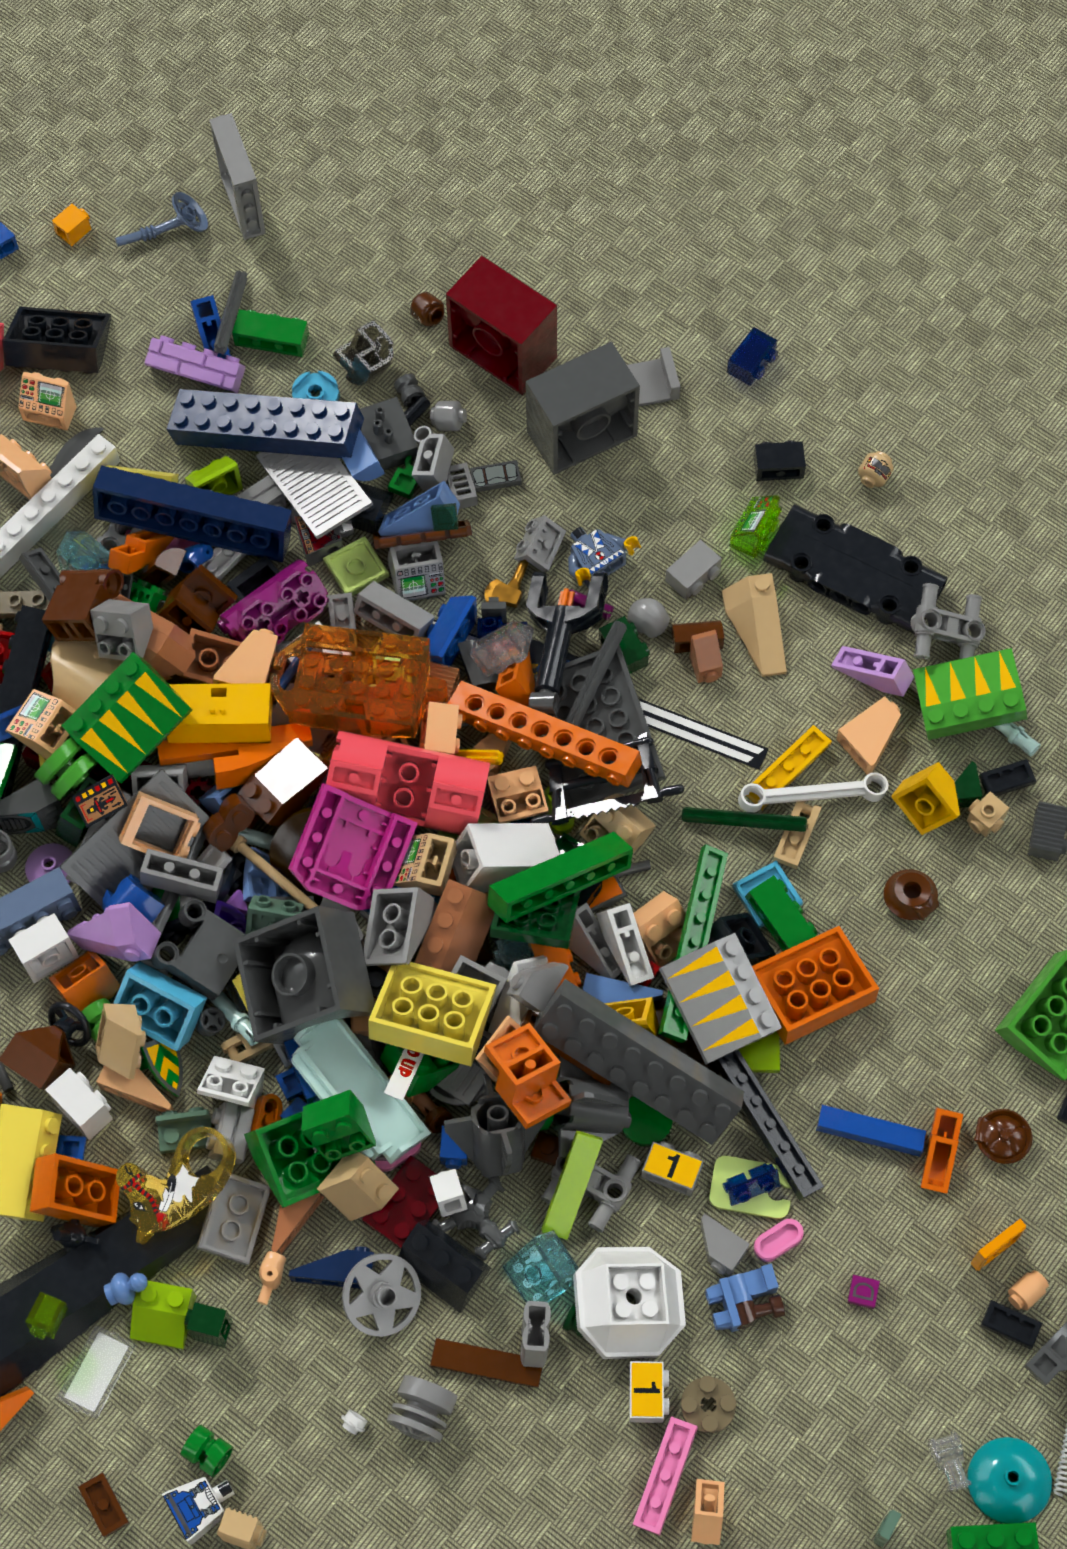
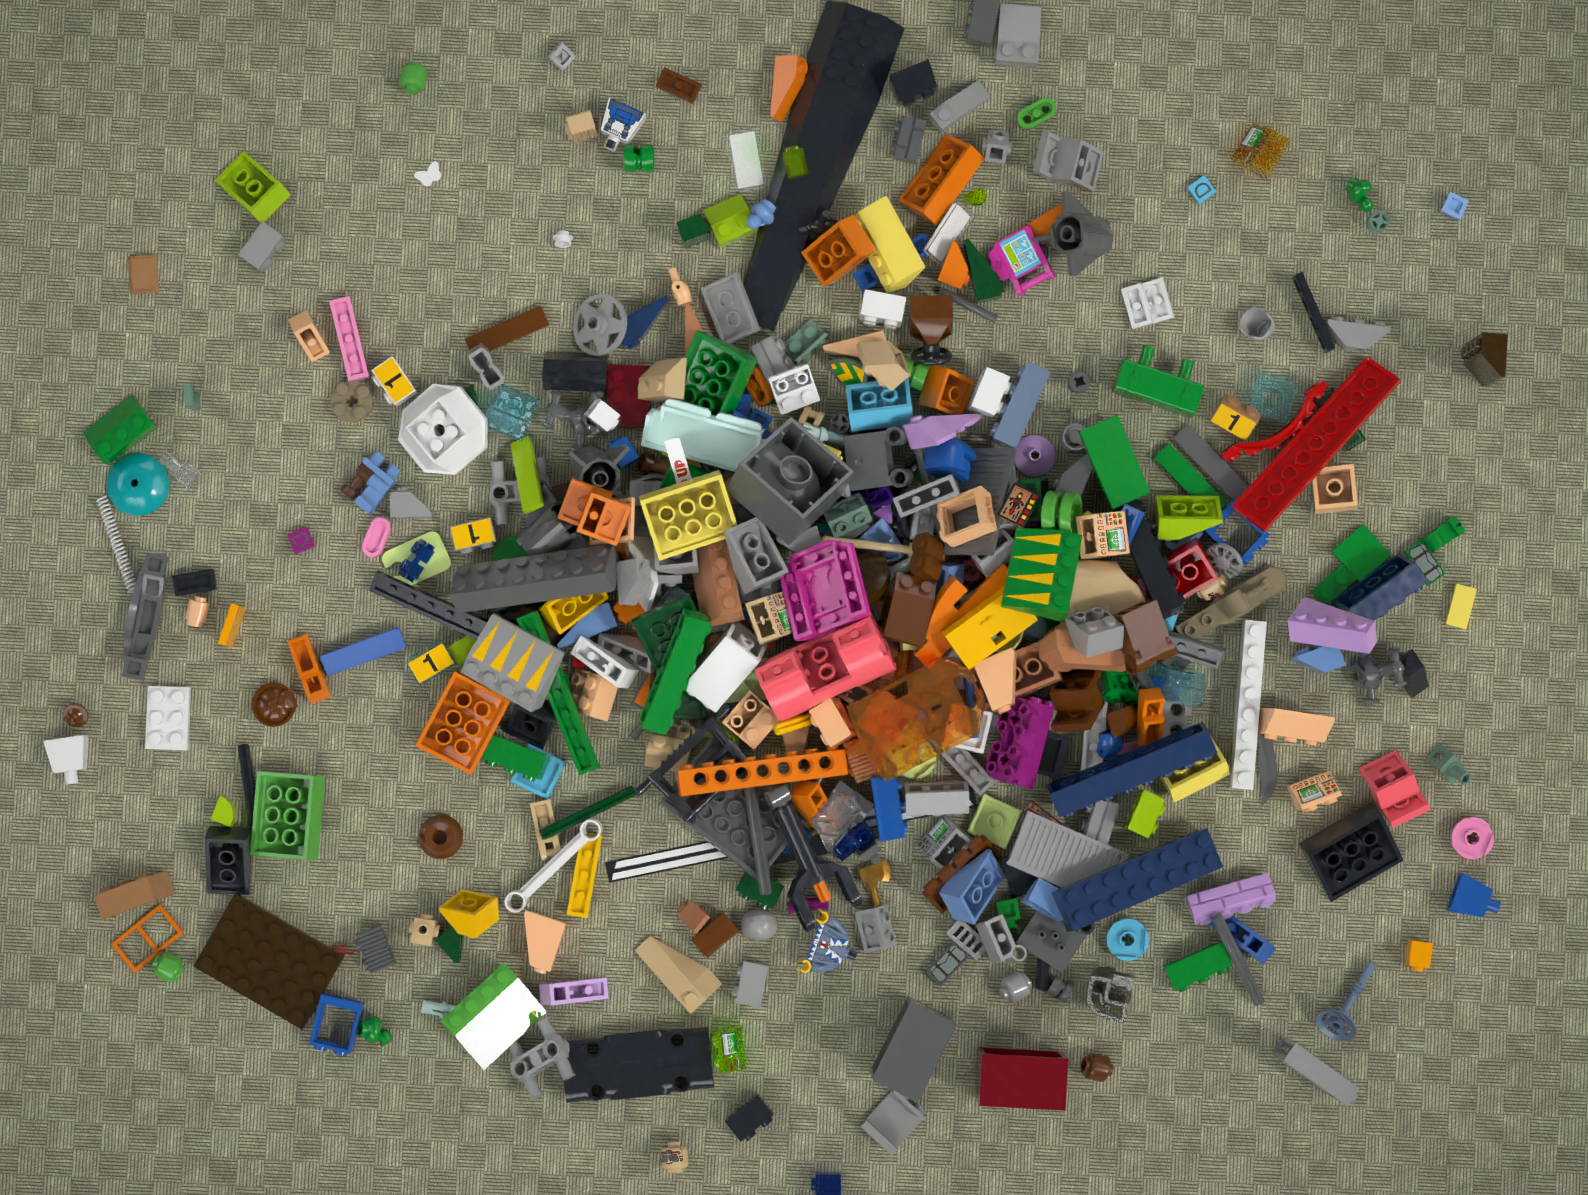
camera: 145 degrees right, 20 degrees up
(180, 1195) = (774, 285): clear yellow animal -> none
(337, 1126) = (697, 400): green slope -> none
(423, 1405) = (522, 267): light grey wheel -> none
(444, 517) = (946, 887): clear green tile -> none
(806, 1068) = (431, 663): none -> yellow brick
(1008, 778) = (428, 971): black plate -> none

